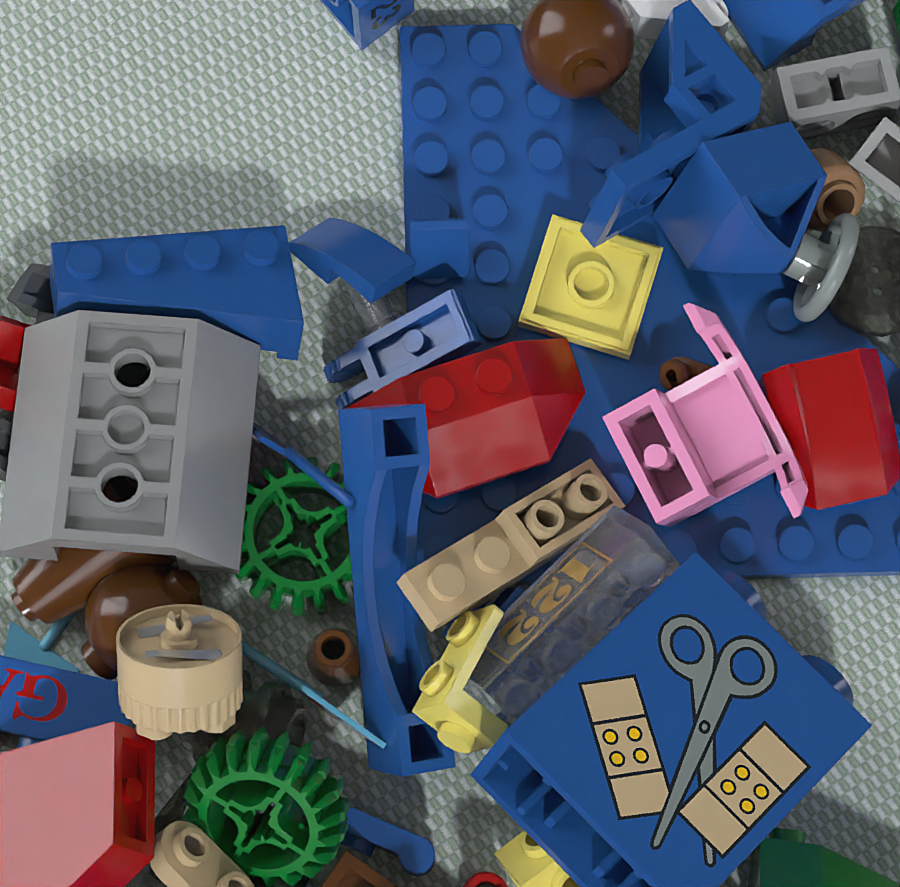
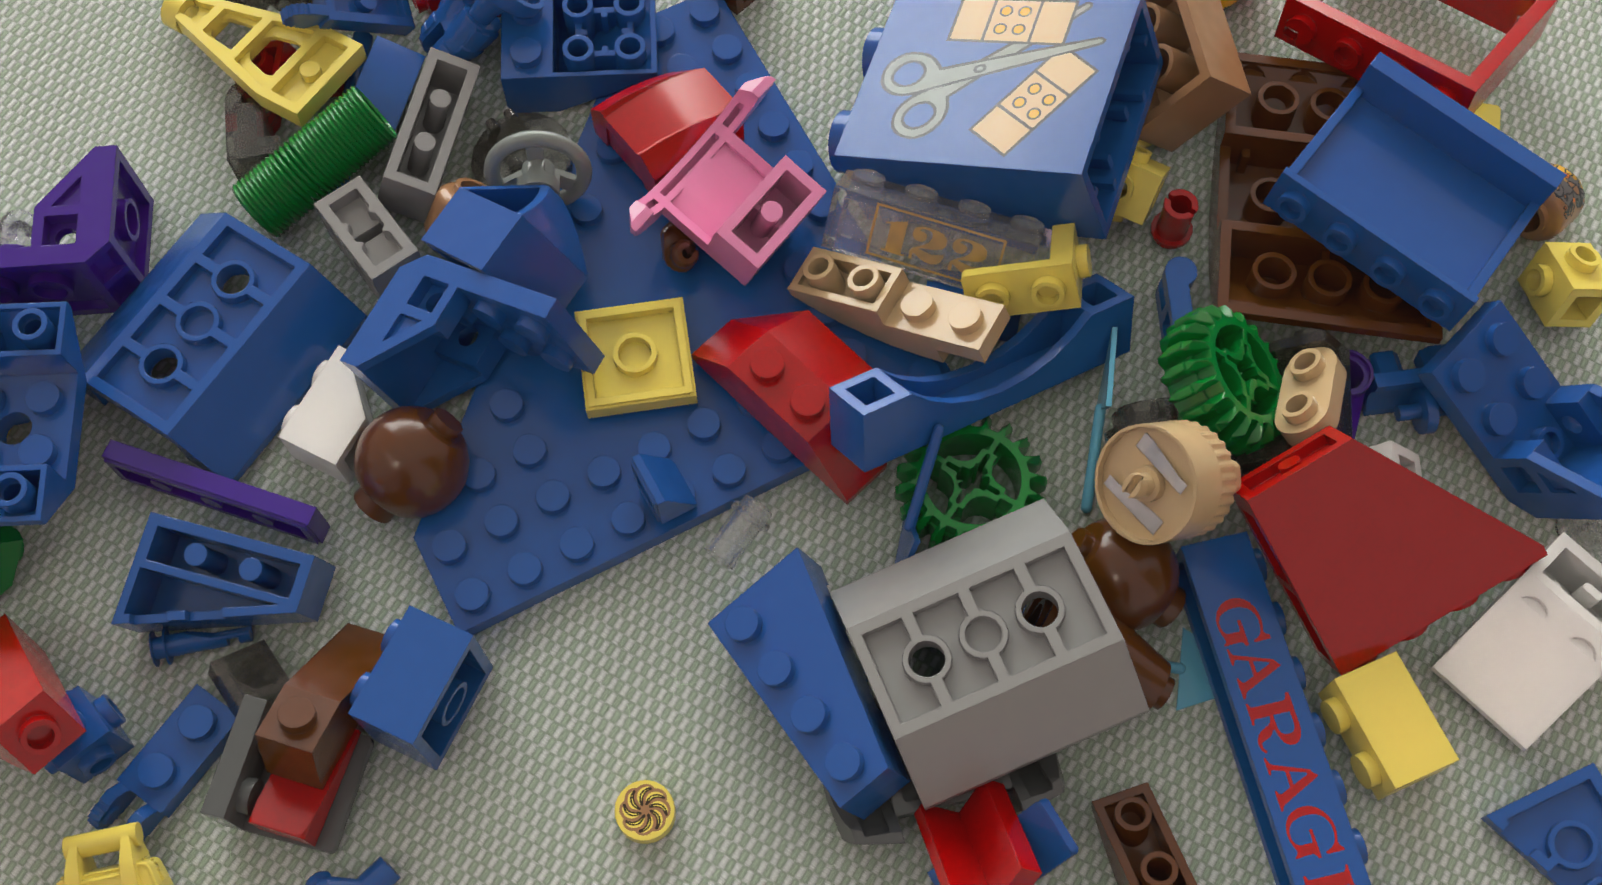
camera: 115 degrees left, 10 degrees down
(162, 117) = (645, 811): none -> tile
(338, 671) = (1055, 417): reddish brown cone -> none
(354, 254) = (702, 550): blue slope -> none
(409, 344) = (769, 471): hinge -> none

